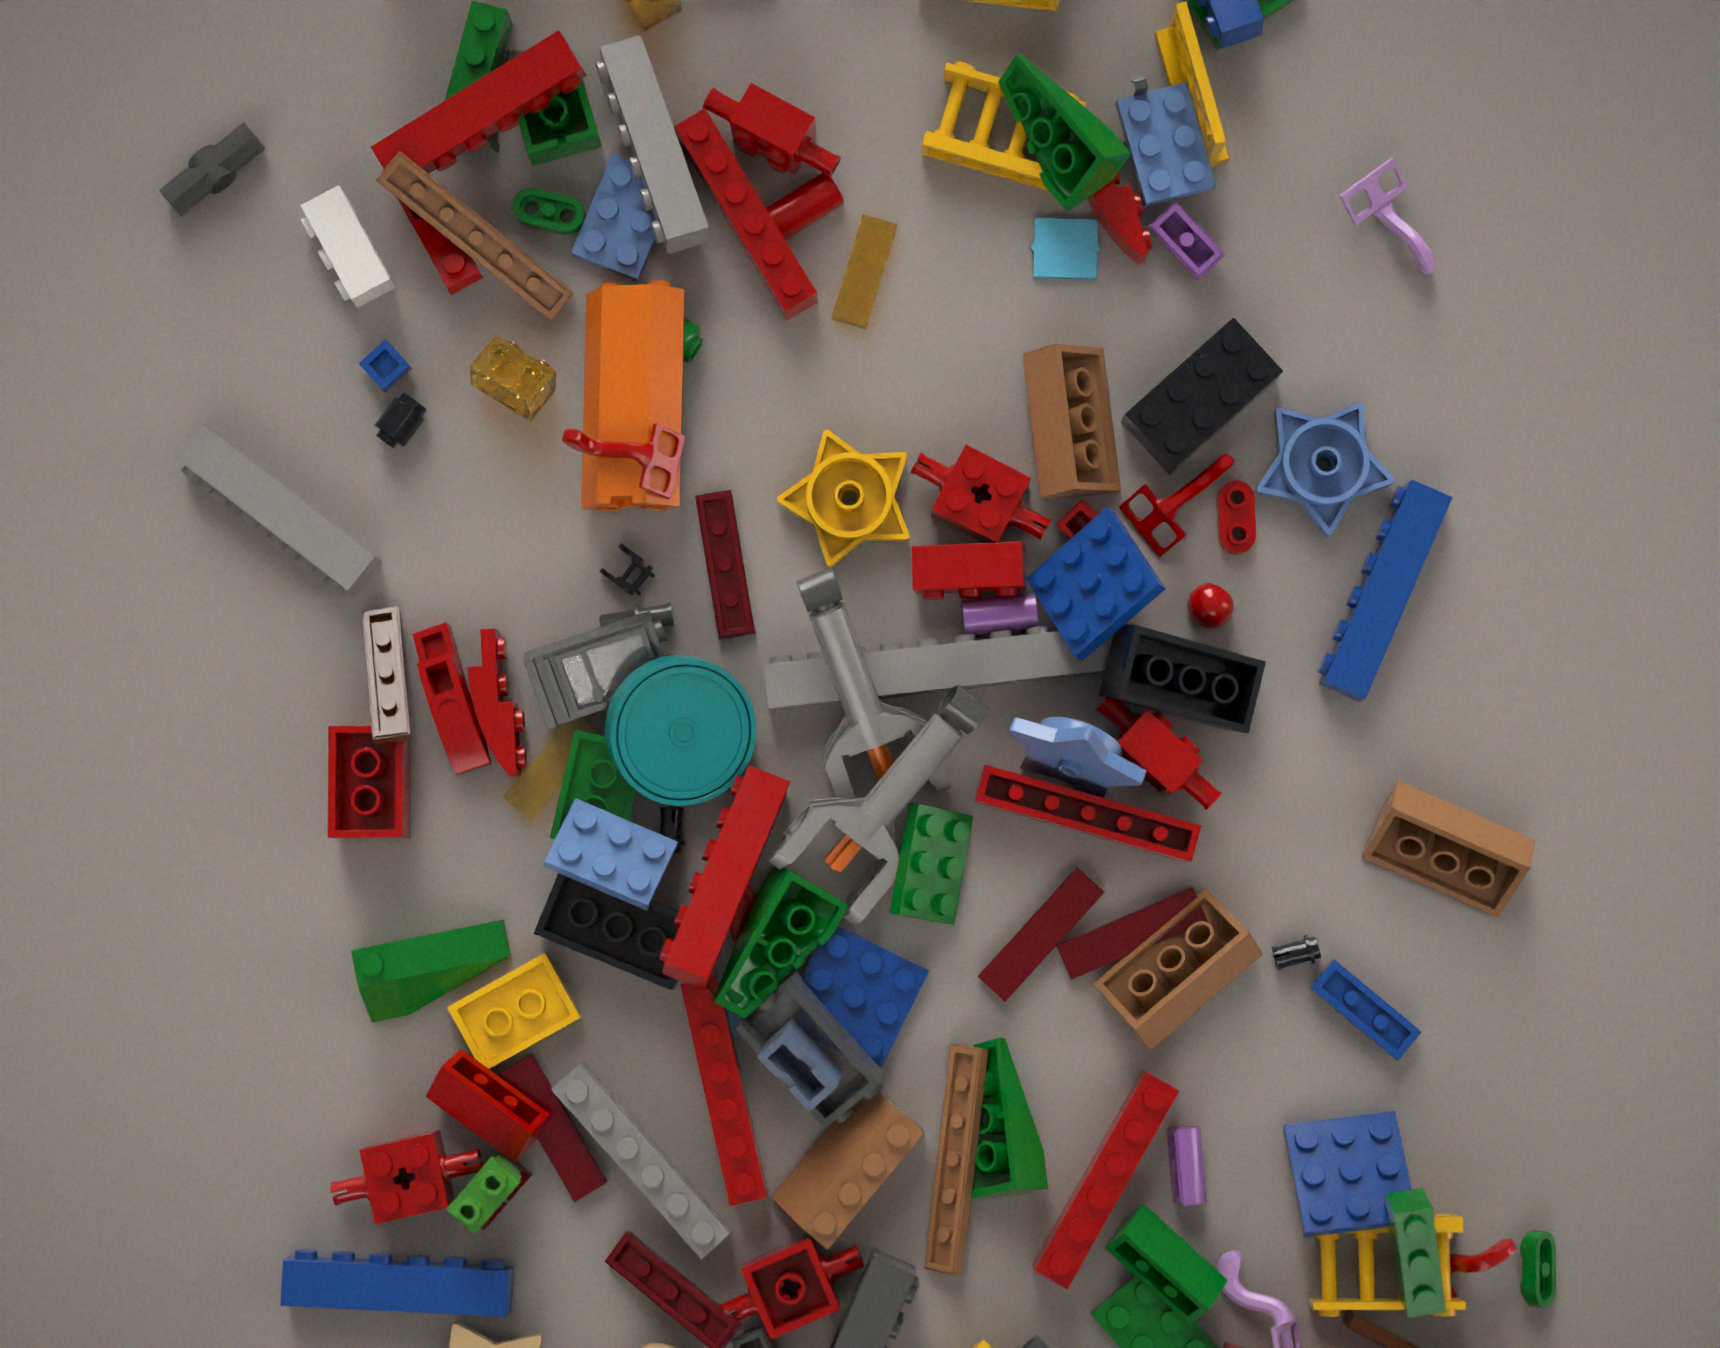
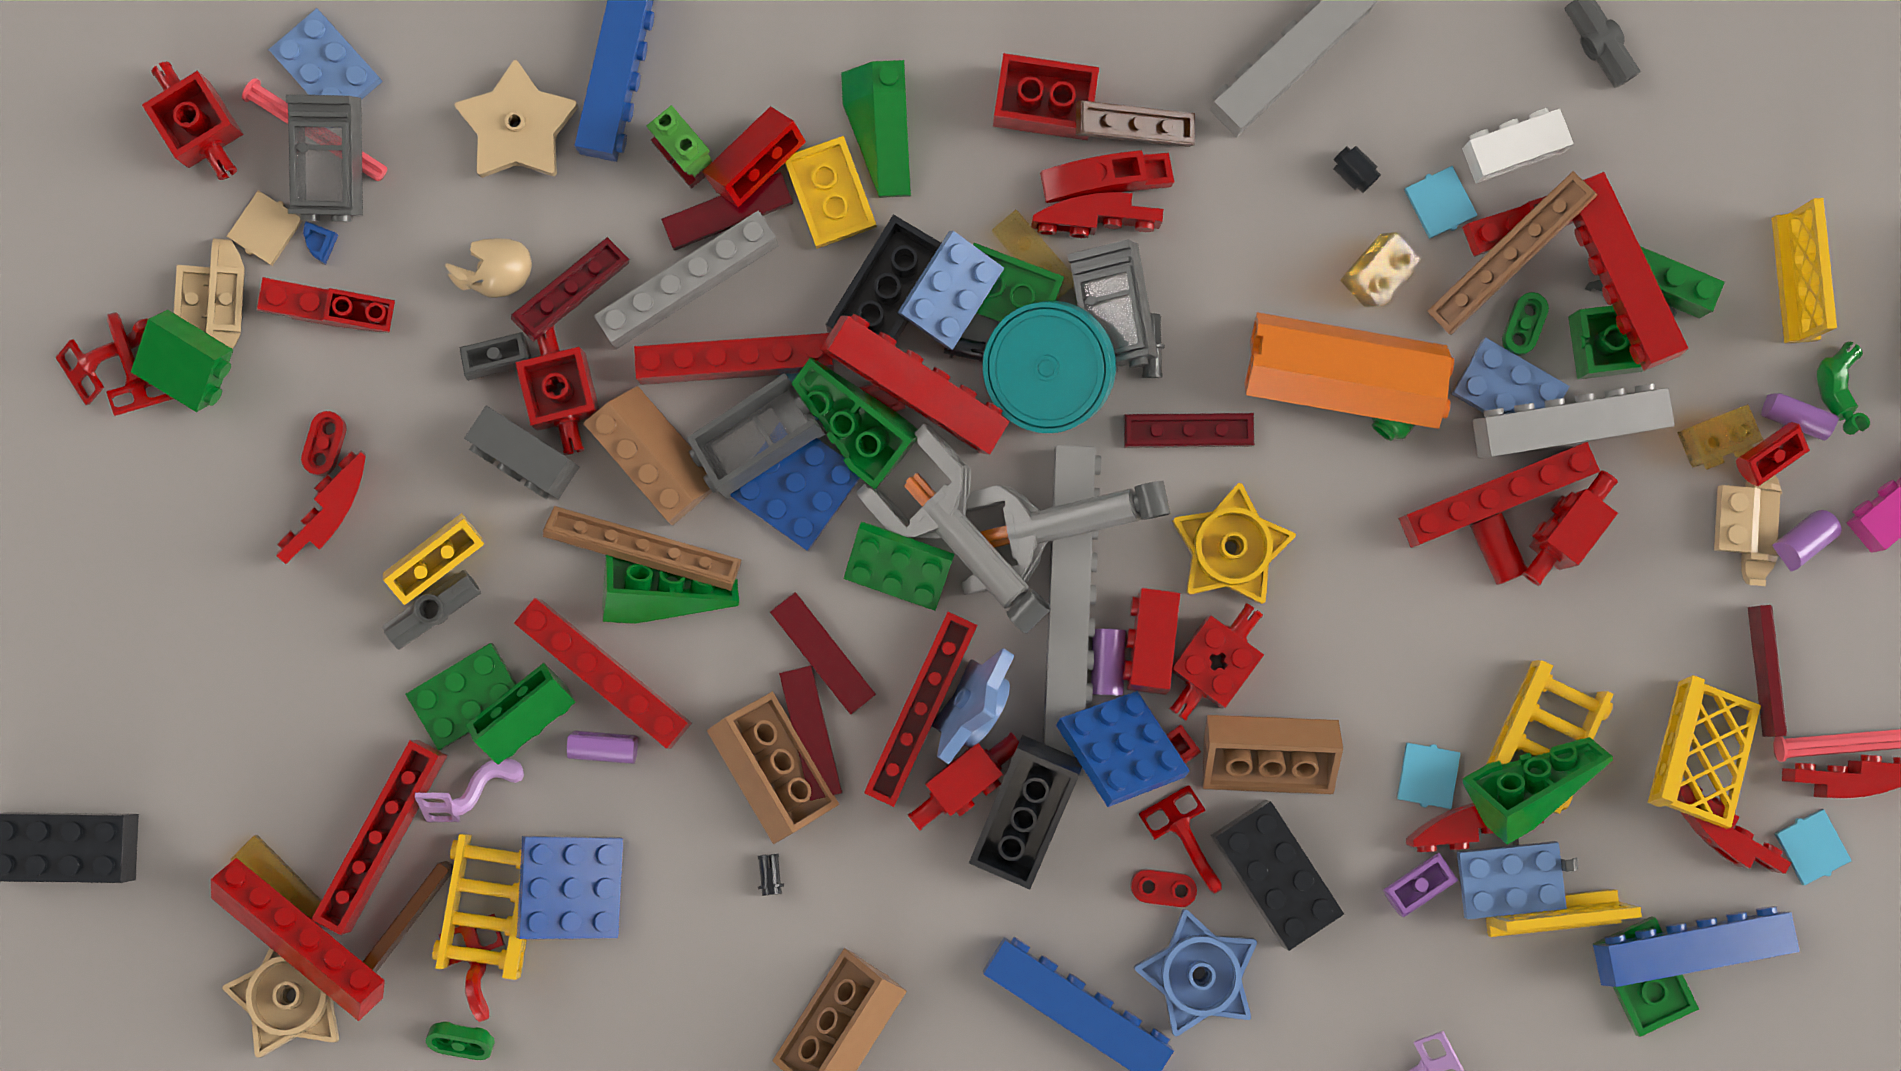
camera: 90 degrees right, 0 degrees up
(385, 365) = (1407, 163): blue plate -> none
(396, 1198) = (700, 62): red brick -> none
(423, 322) = (1440, 202): none -> medium azure piece
(621, 581) = (1203, 354): black piece -> none
(645, 454) = (1295, 370): red piece -> none
(800, 1064) = (743, 424): sand blue brick -> none
(864, 271) = (1432, 593): clear yellow tile -> none
(1210, 606) = (1087, 850): red piece -> none
(1365, 1009) = (710, 927): blue plate -> none
(1415, 1252) = (490, 930): green brick -> none

